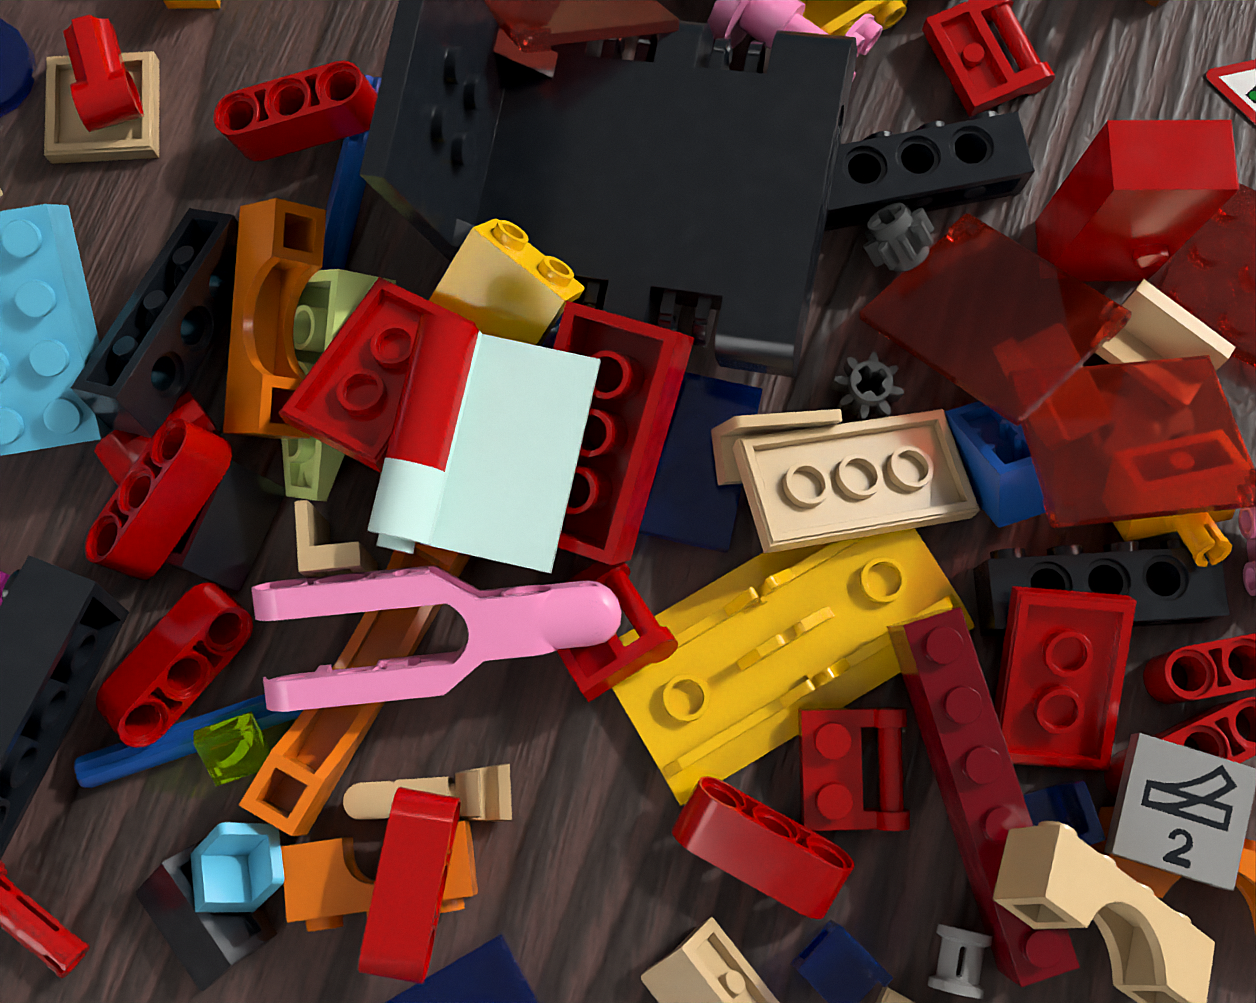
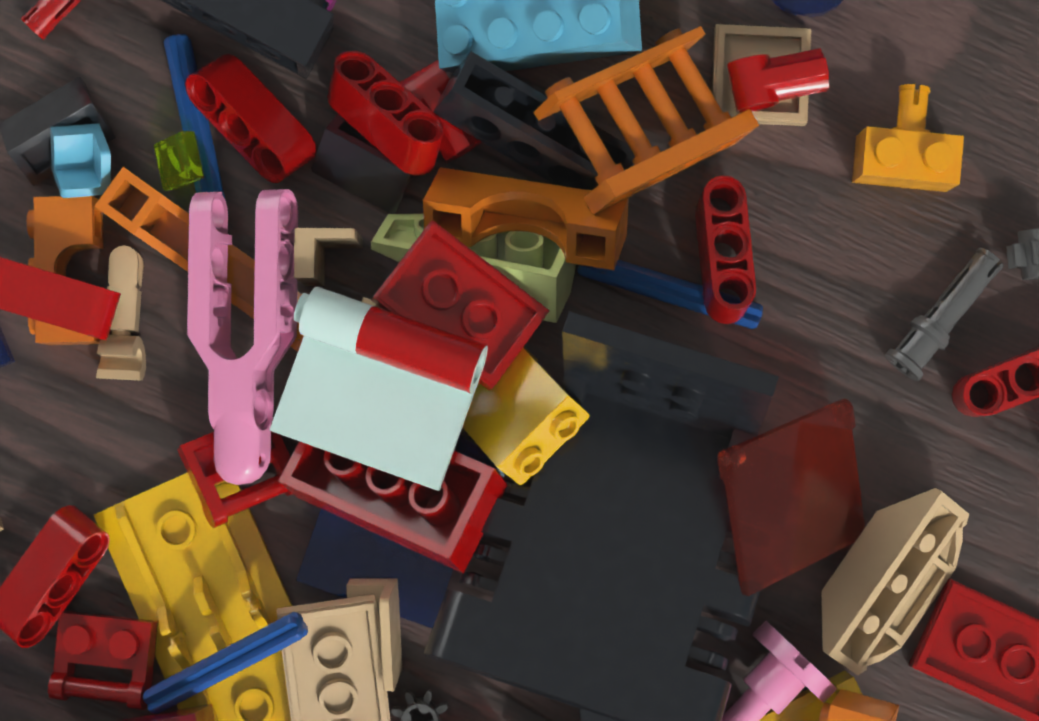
camera: 100 degrees right, 10 degrees up
(197, 182) = (649, 162): none -> orange fence
(837, 604) = (225, 662): none -> blue axle

